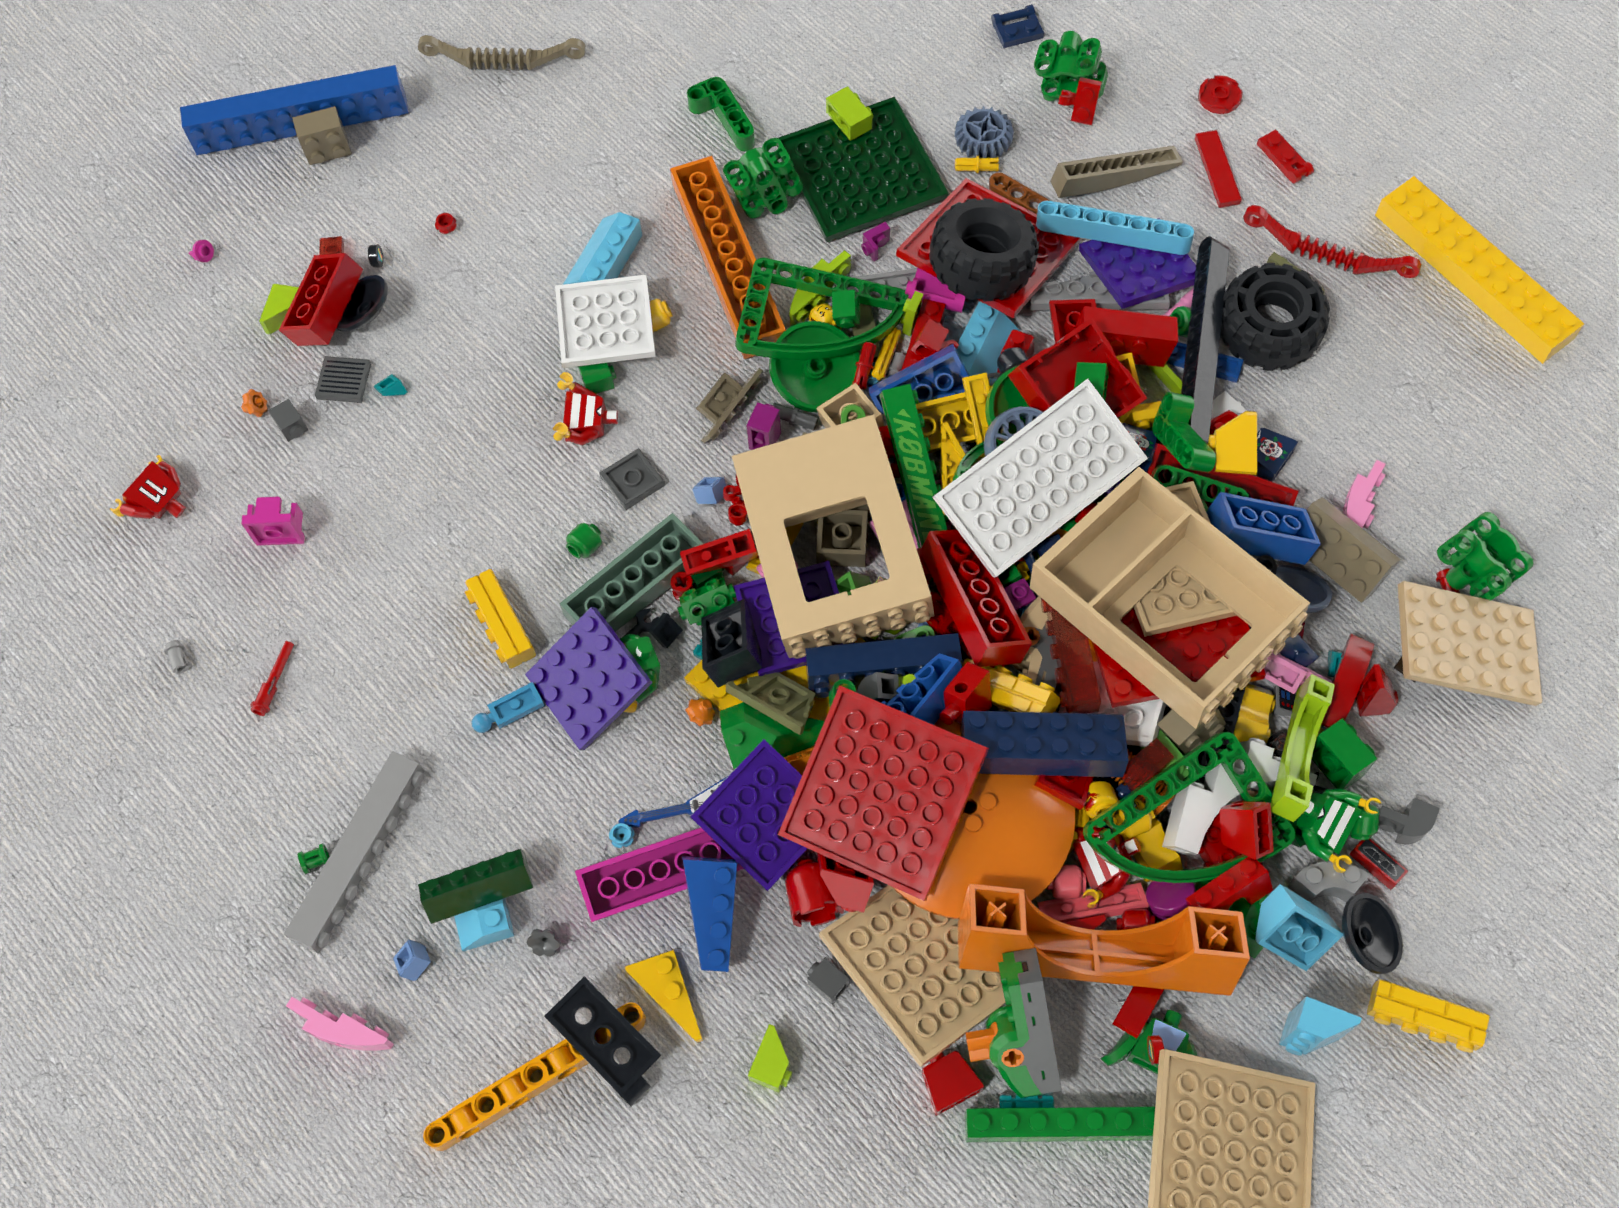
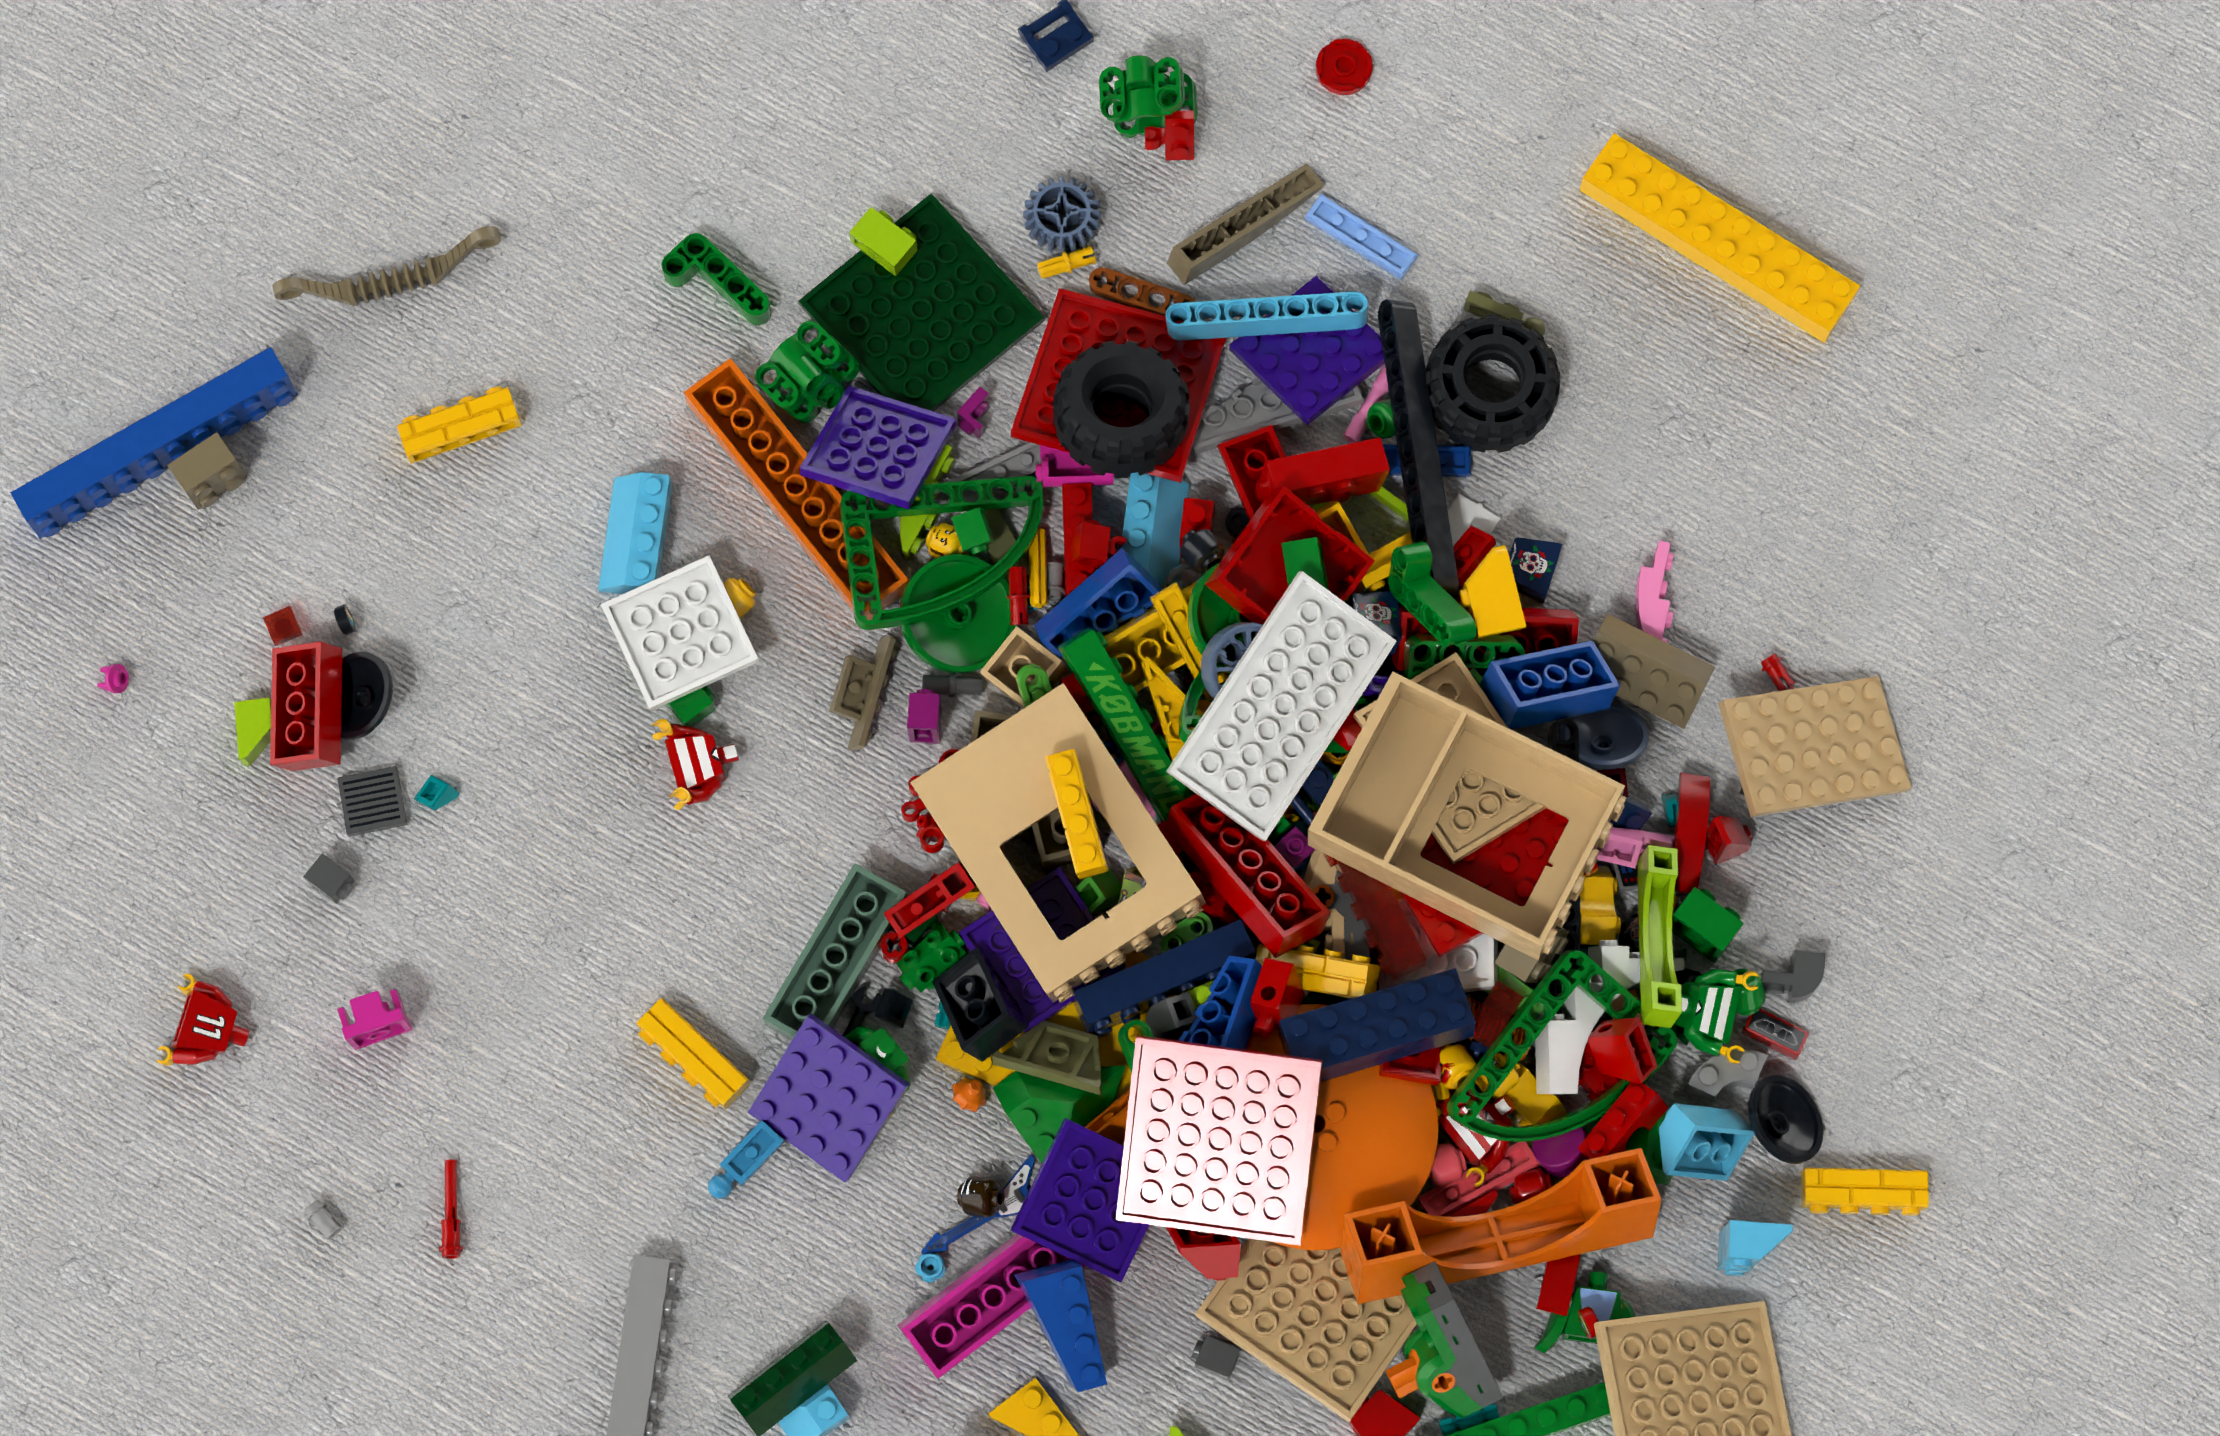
camera: 20 degrees left, 10 degrees up
(254, 403) = (276, 869): orange piece -> none
(313, 858) = (587, 1415): green bush -> none
(442, 221) = (412, 539): red plate -> none
(507, 155) = (459, 424): none -> yellow brick
(543, 942) = (888, 1415): dark grey plant -> none
(583, 540) = (756, 925): green head -> none
(632, 479) = (783, 825): dark grey tile -> none
(680, 791) = (980, 1196): none -> dark brown head
(709, 490) = (883, 813): medium blue slope -> none
(795, 237) = (878, 447): none -> dark purple plate
(809, 895) = (1165, 1269): red cylinder -> none
(850, 507) = (1076, 814): none -> yellow brick
(911, 311) = (1052, 506): lime plate -> none
(1200, 203) = (1361, 237): none -> light blue tile
(1217, 169) = (1369, 180): red tile -> none
(1284, 156) = (1448, 138): red plate -> none
(1360, 265) = (1489, 264): red piece -> none
(1483, 558) = (1808, 635): green piece -> none

